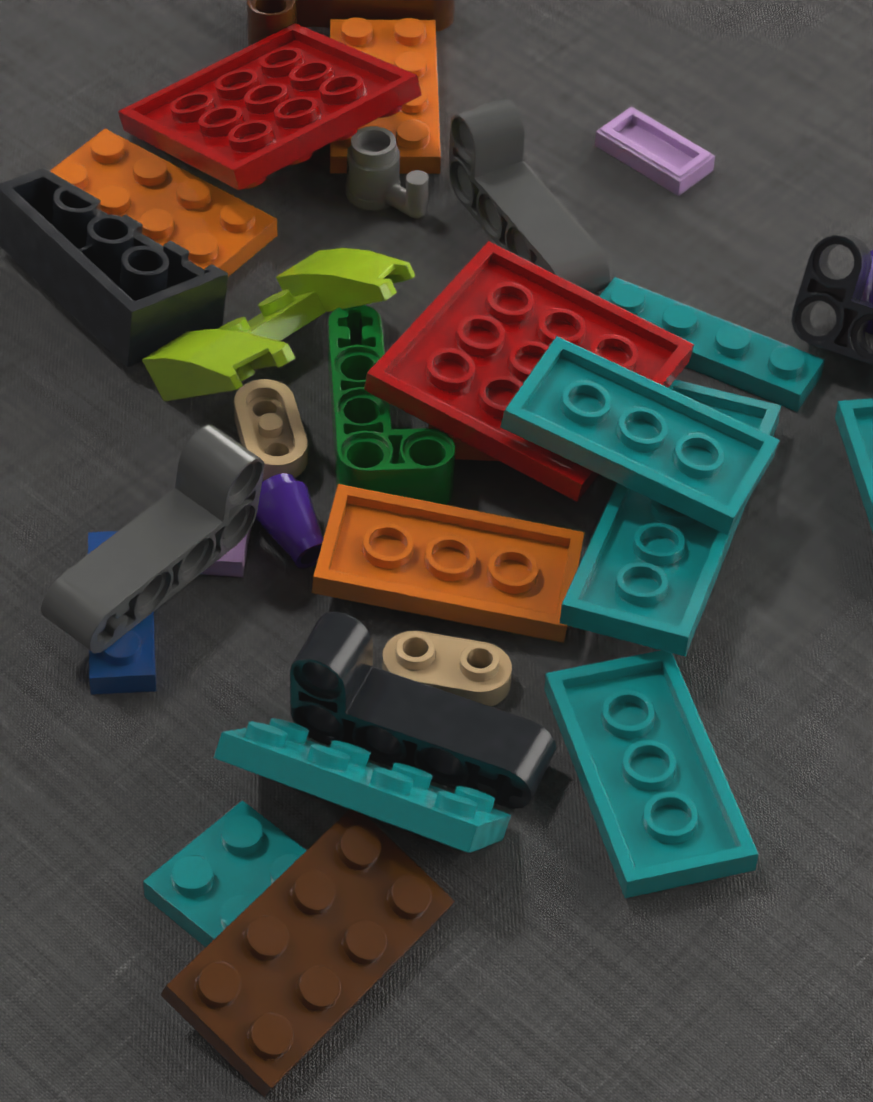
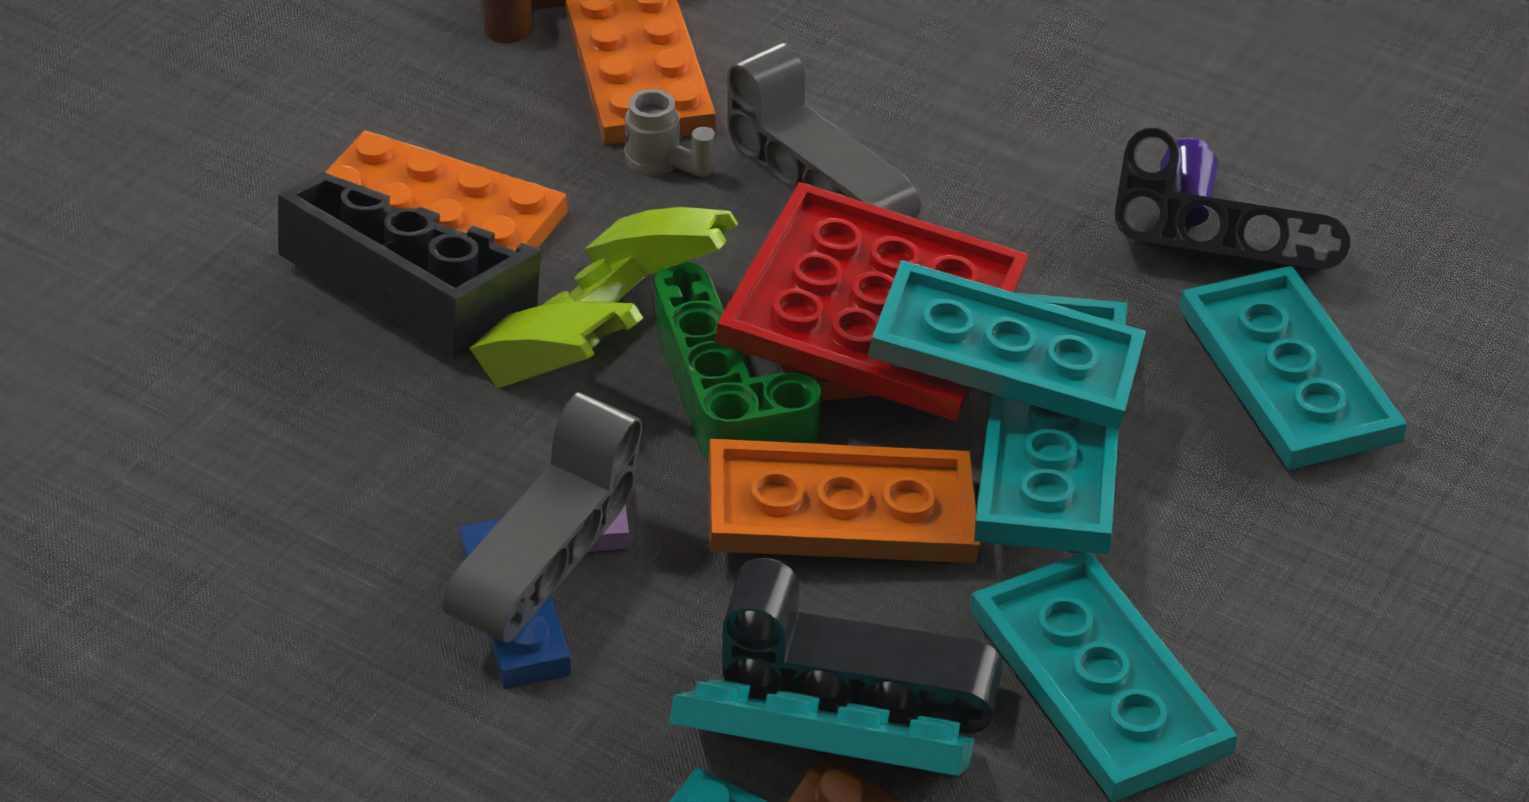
camera: 10 degrees left, 5 degrees down
(269, 105) = (533, 84): red plate -> none
(271, 426) = (620, 382): tan plate -> none
(290, 518) = (668, 484): dark purple cone -> none
(451, 664) = (870, 598): tan plate -> none
(654, 151) = (925, 81): lavender tile -> none
(726, 349) = (1058, 259): teal plate -> none

